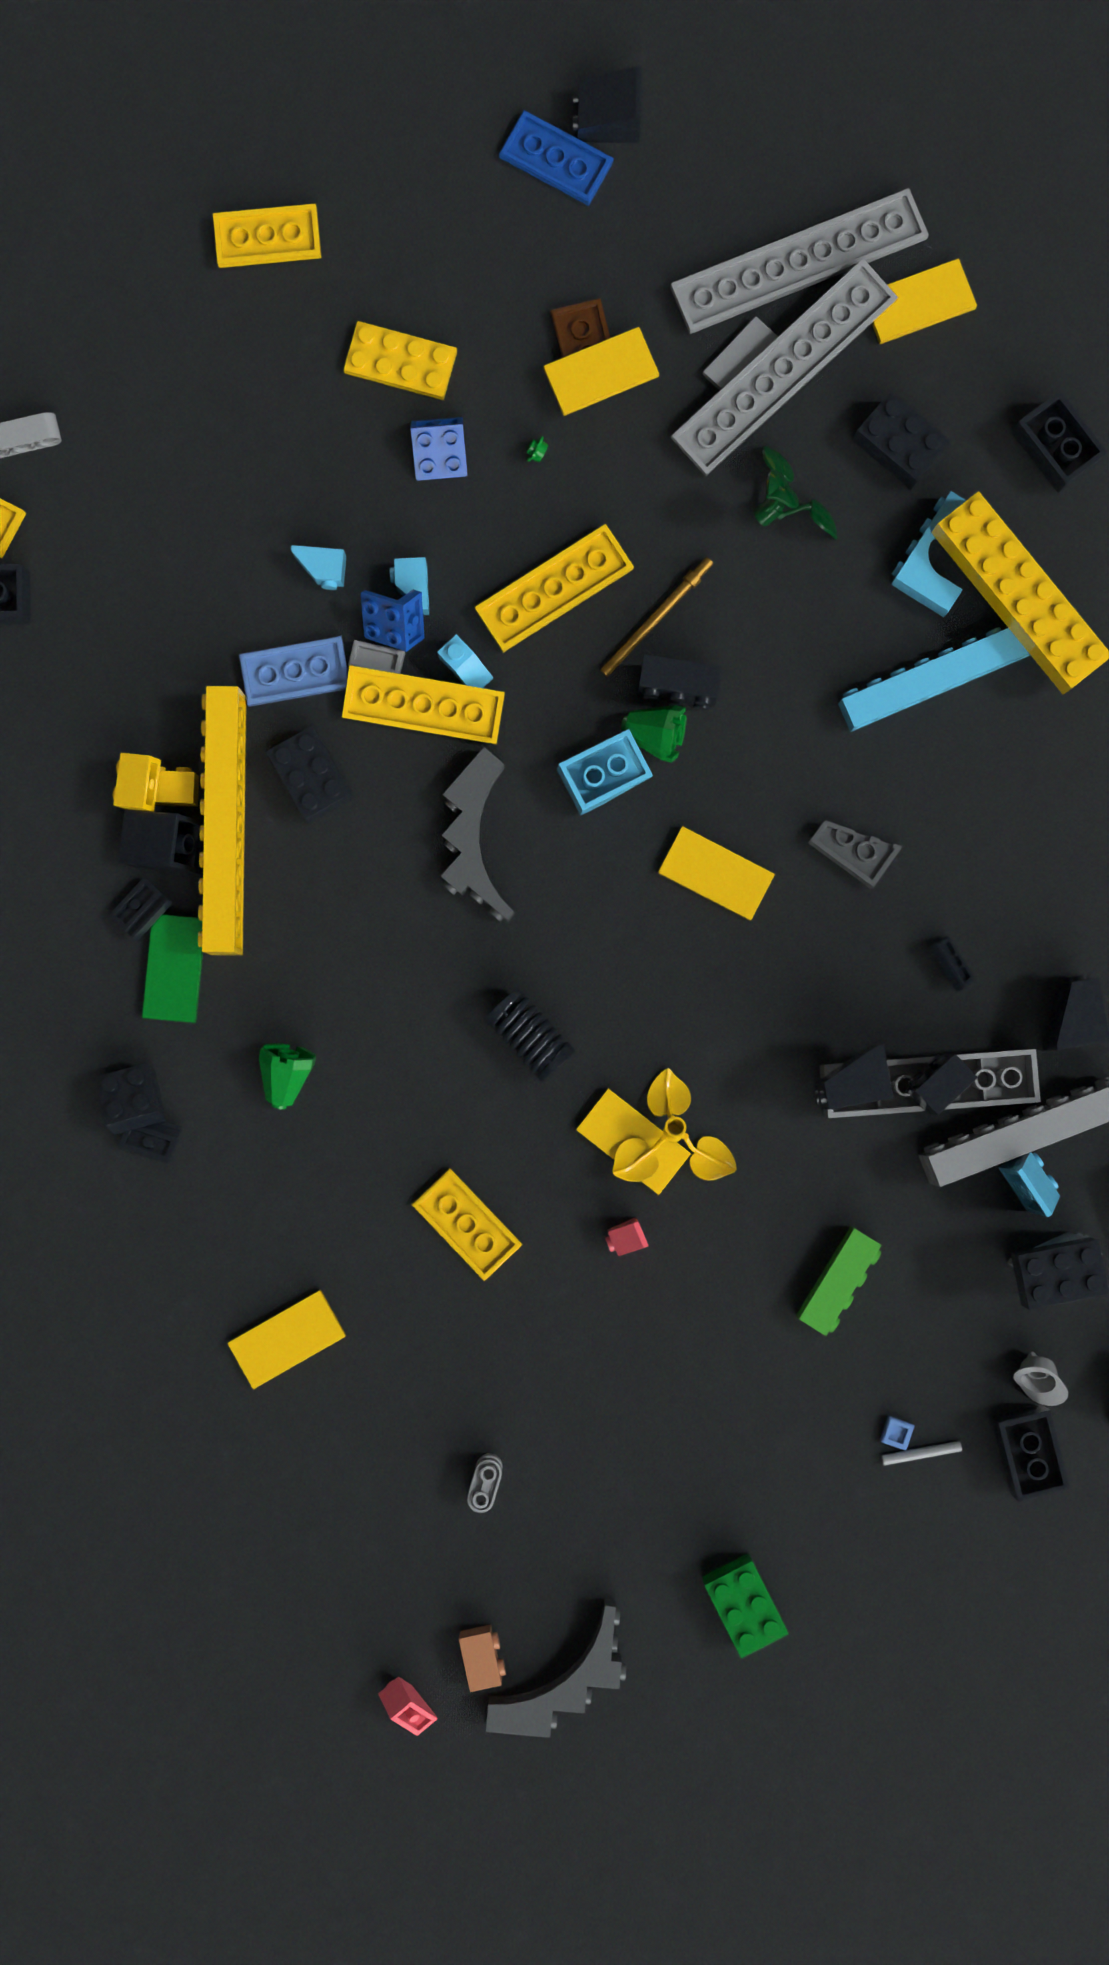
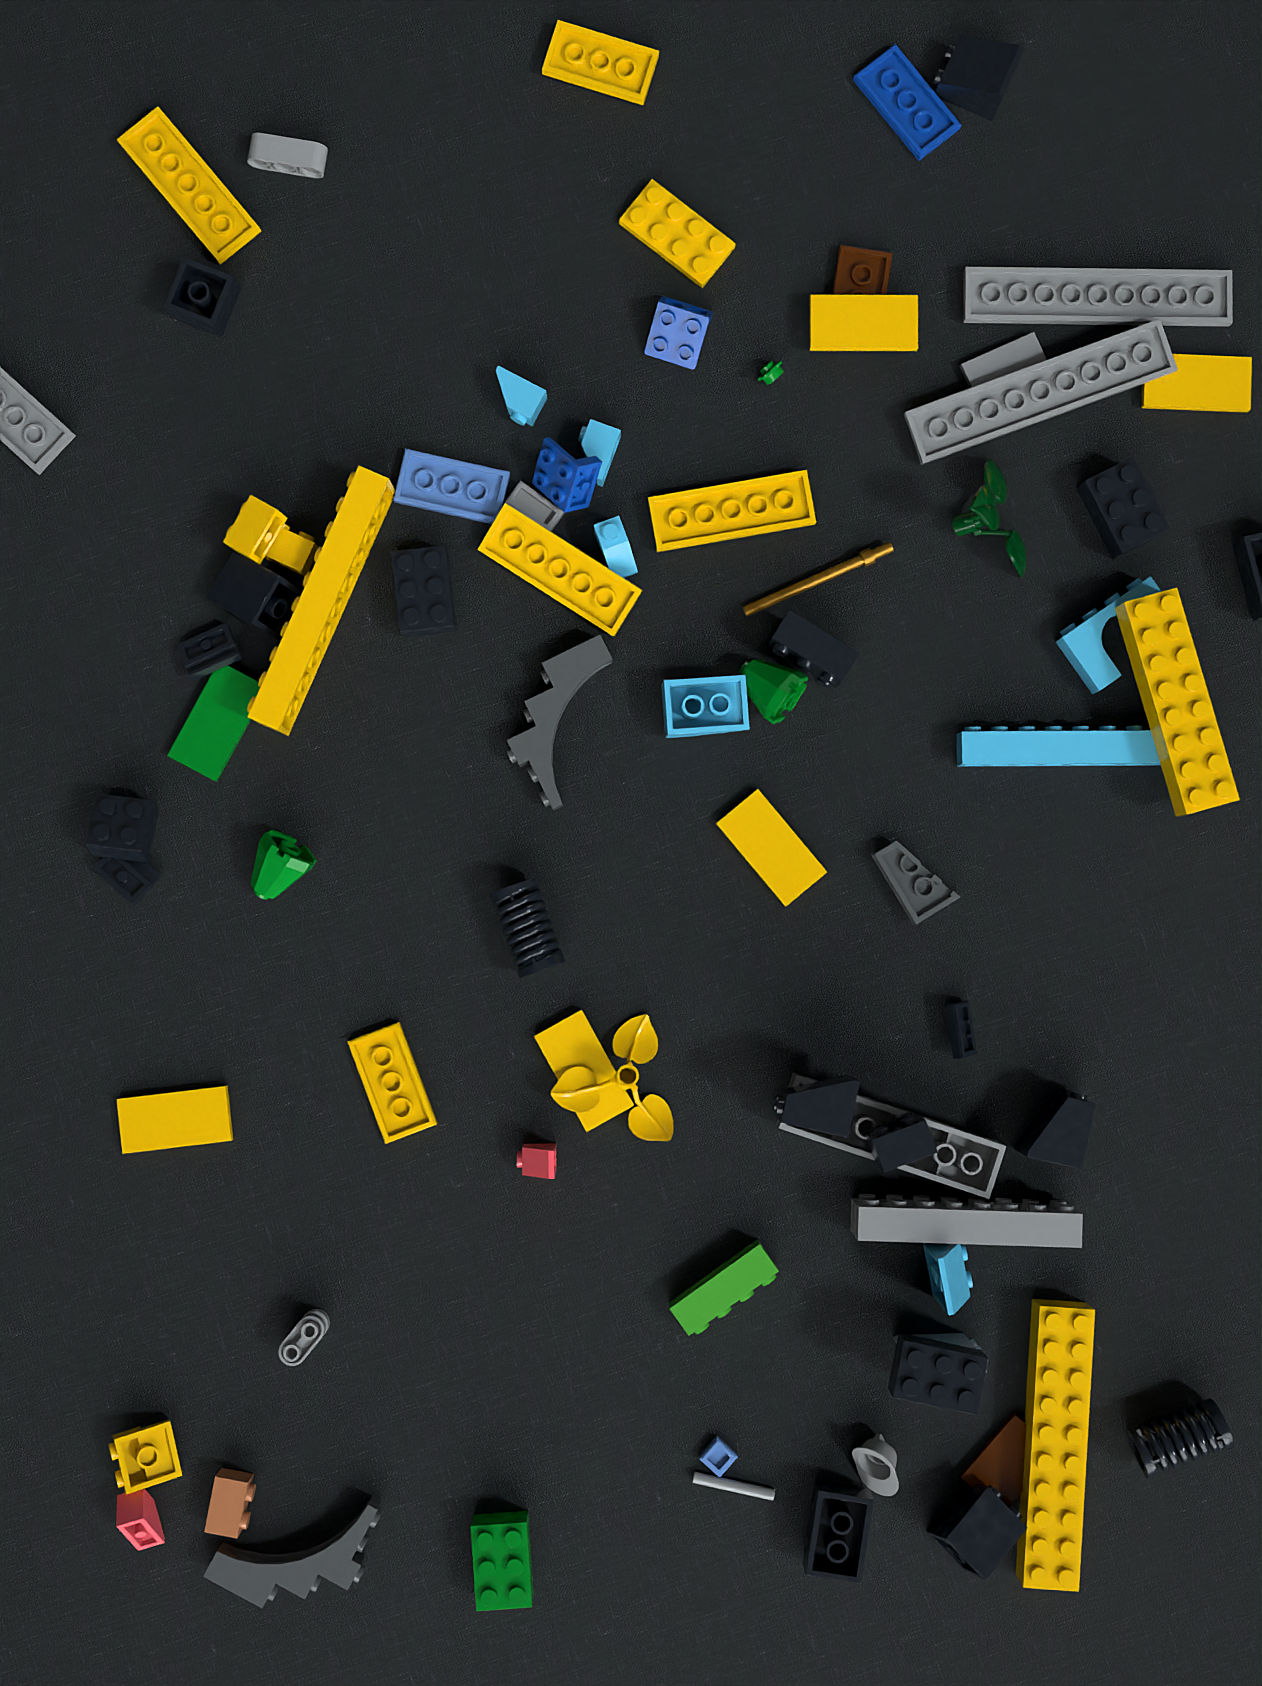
camera: 20 degrees right, 0 degrees up
(388, 1648) = (145, 1456): none -> yellow plate

